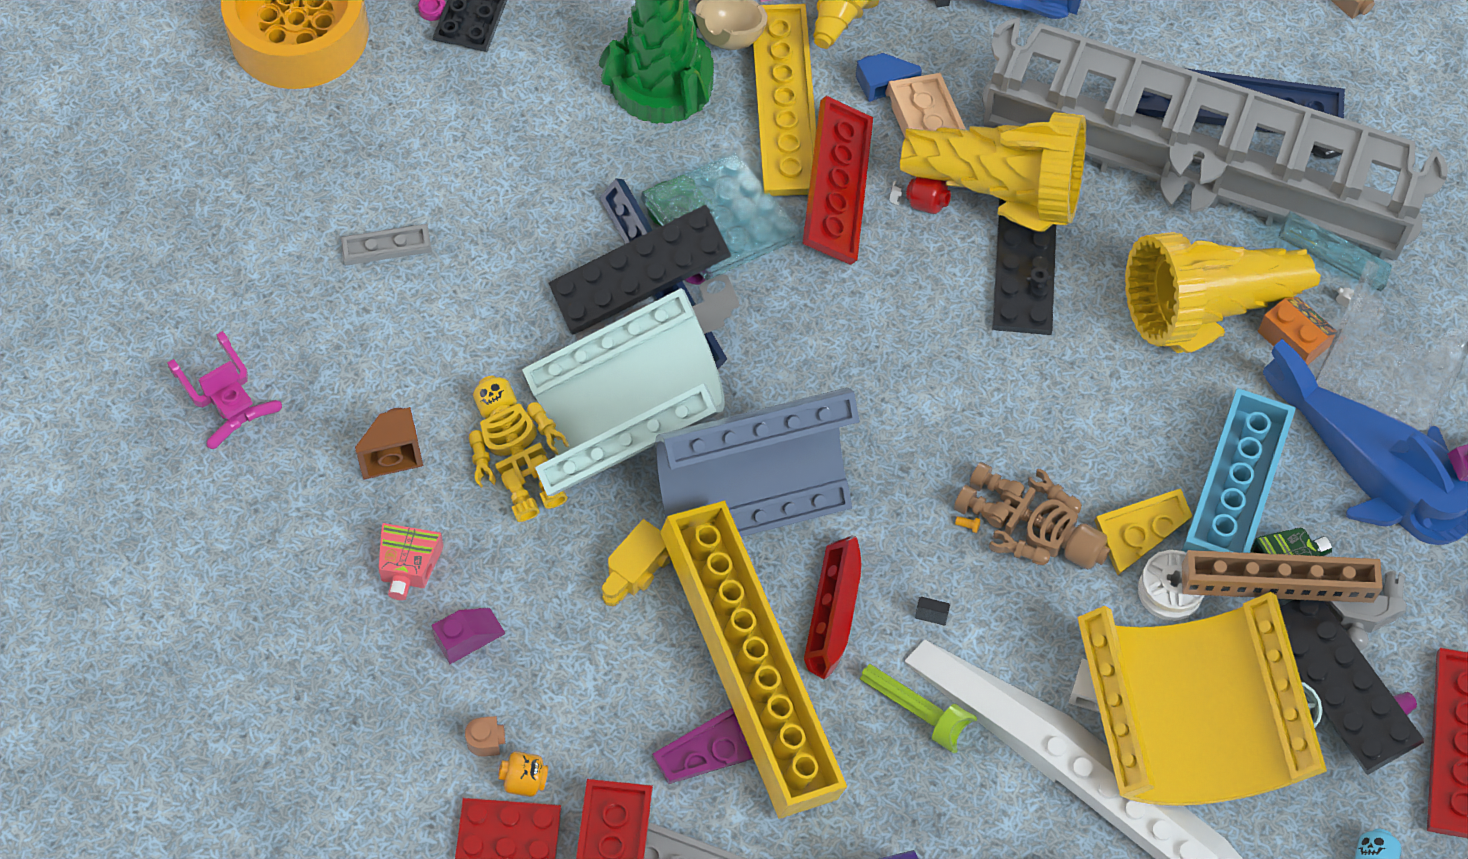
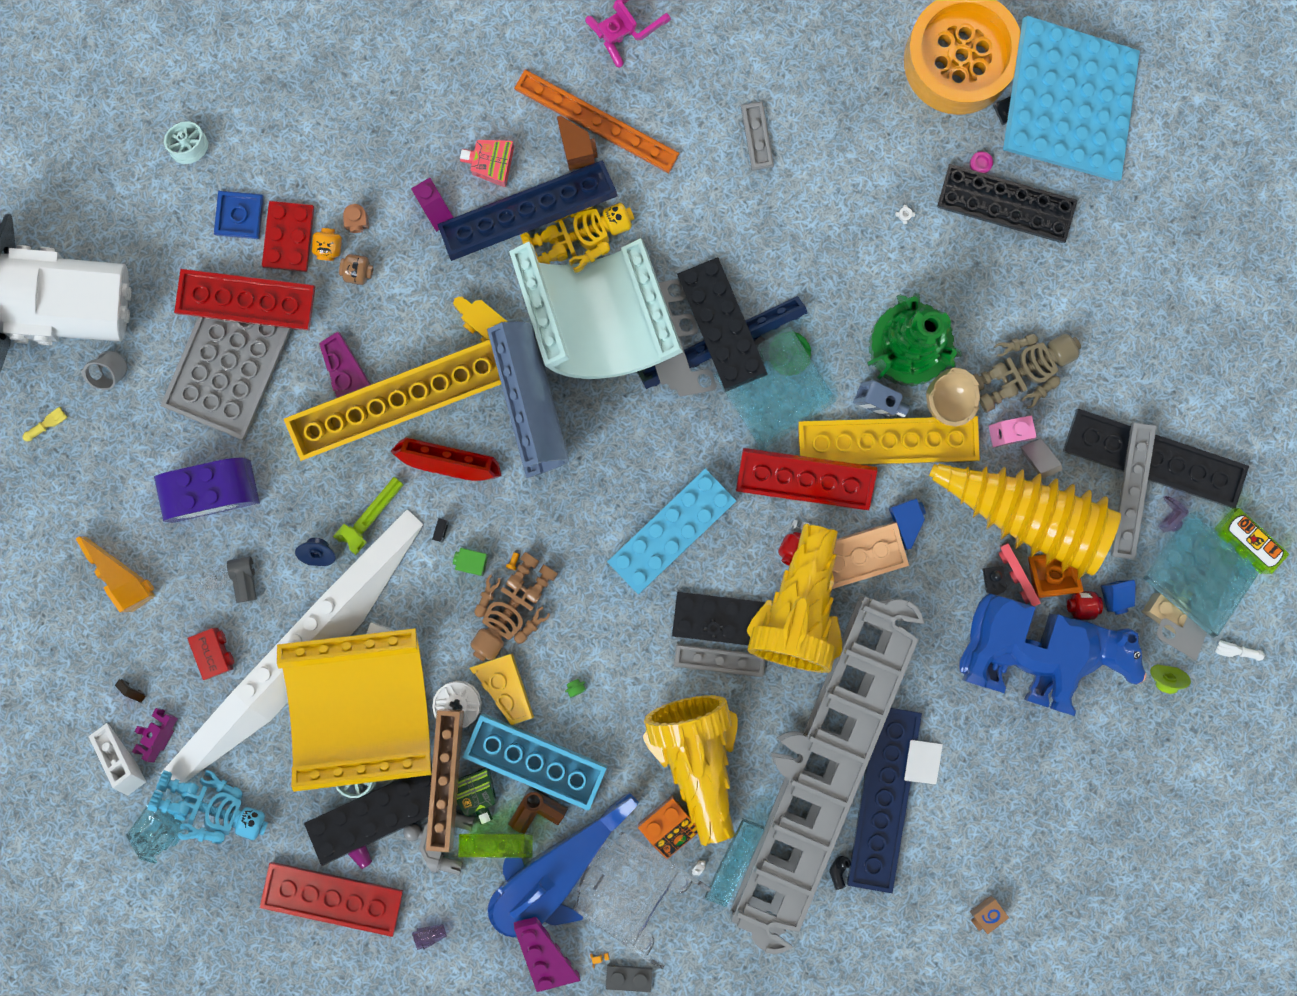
camera: 95 degrees right, 25 degrees up
(340, 452) = (596, 121): none -> orange tile
(481, 509) = (527, 210): none -> dark blue plate
(495, 84) = (905, 214): none -> white piece
(561, 731) = (355, 269): none -> medium nougat head
(733, 90) = (880, 399): none -> sand blue torso
(916, 329) = (671, 531): none -> medium azure brick
(973, 571) = (470, 561): none -> bright green brick
(976, 774) = (315, 552): none -> dark blue piece
(1078, 279) = (718, 660): none -> light grey tile
(1133, 441) = (575, 688): none -> bright green plate
(1182, 58) = (923, 762): none -> white sticker
(1302, 493) = (526, 811): none -> reddish brown piece
(1358, 517) = (495, 845): none -> clear neon green brick

